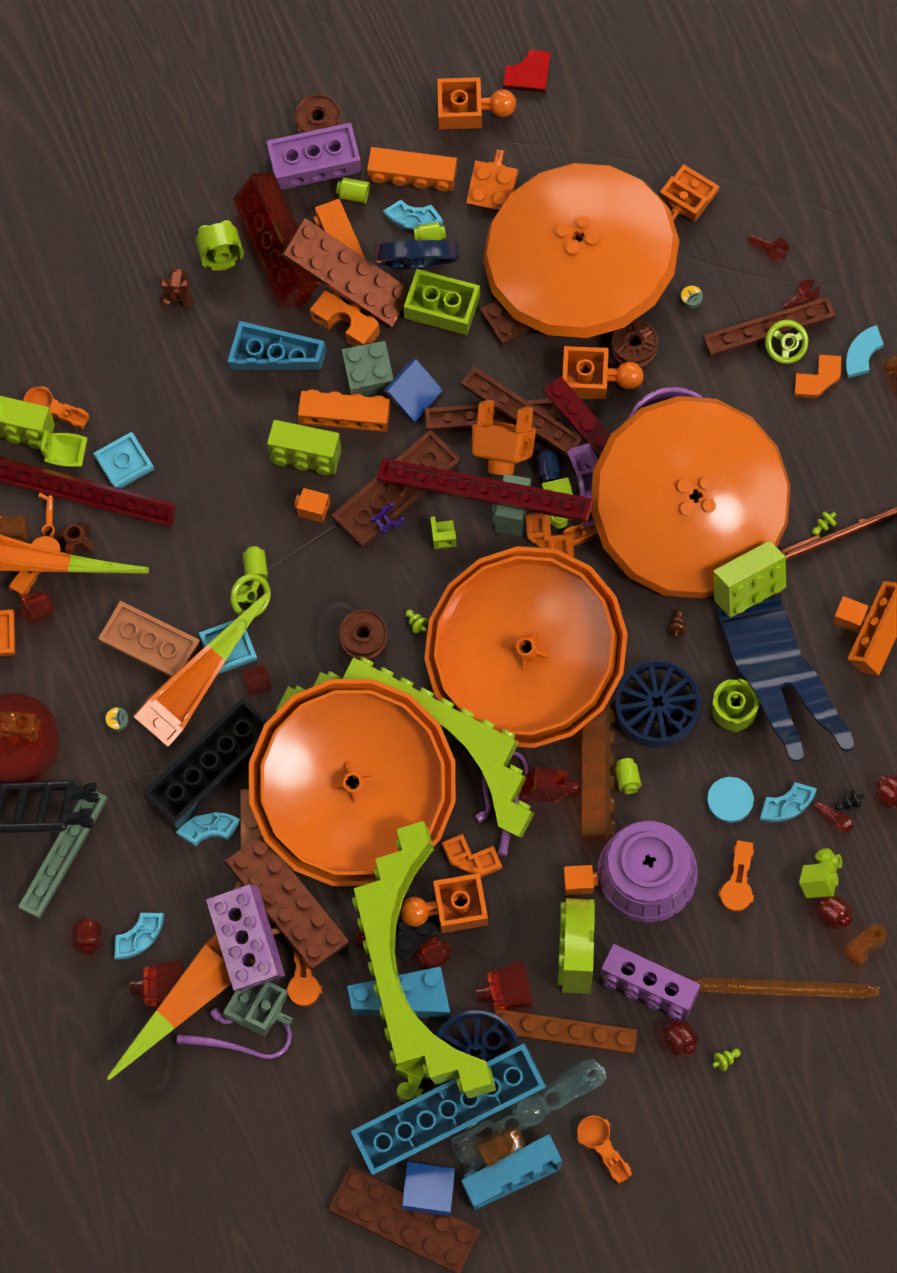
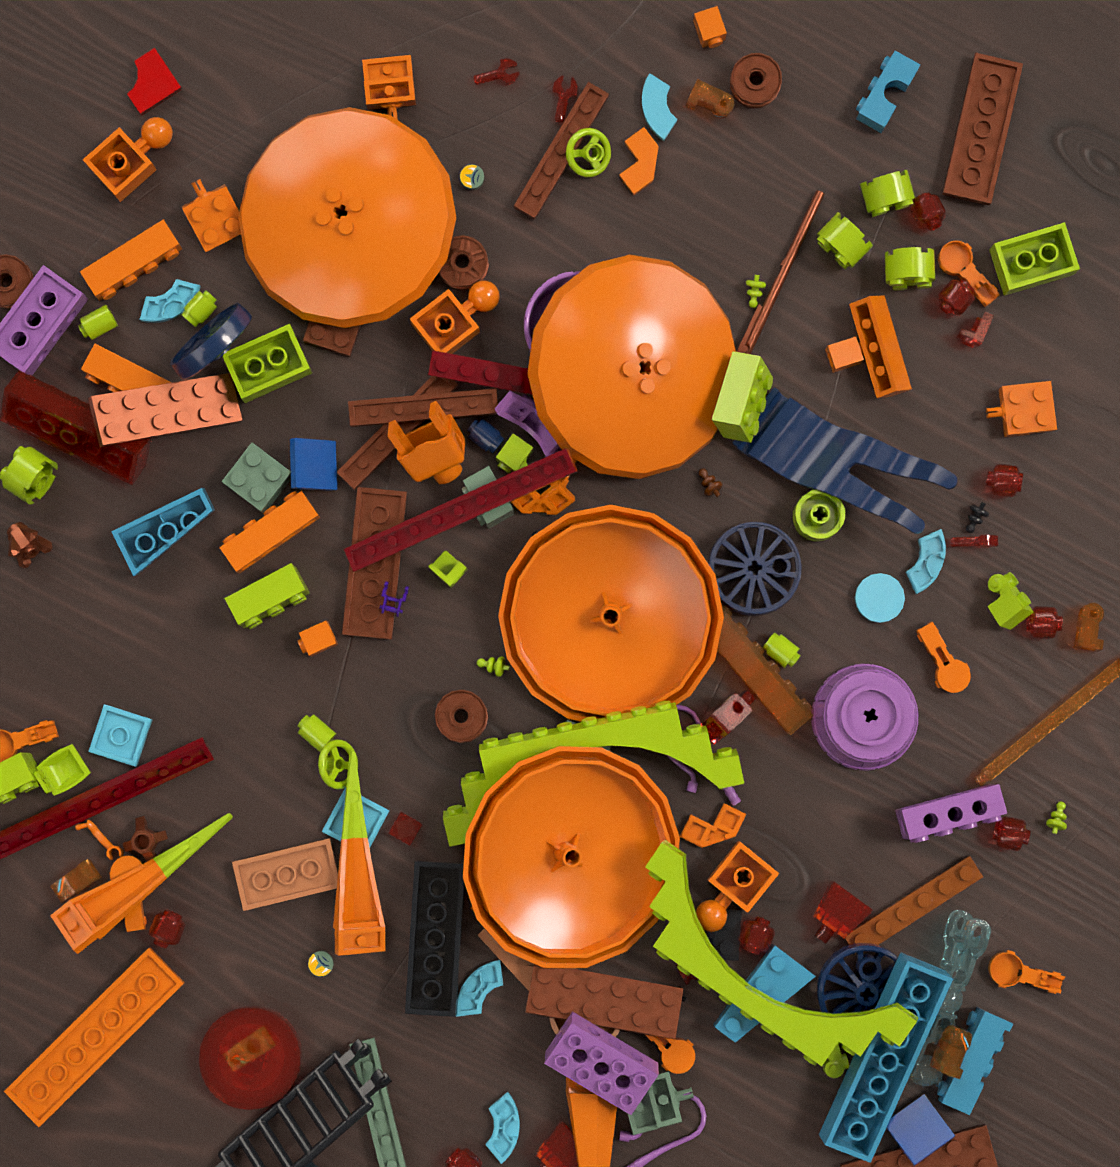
camera: 45 degrees left, 15 degrees up
(331, 309) = (175, 449): orange arch -> none
(576, 945) = (866, 825): lime brick -> none
(579, 880) = (819, 772): orange brick -> none

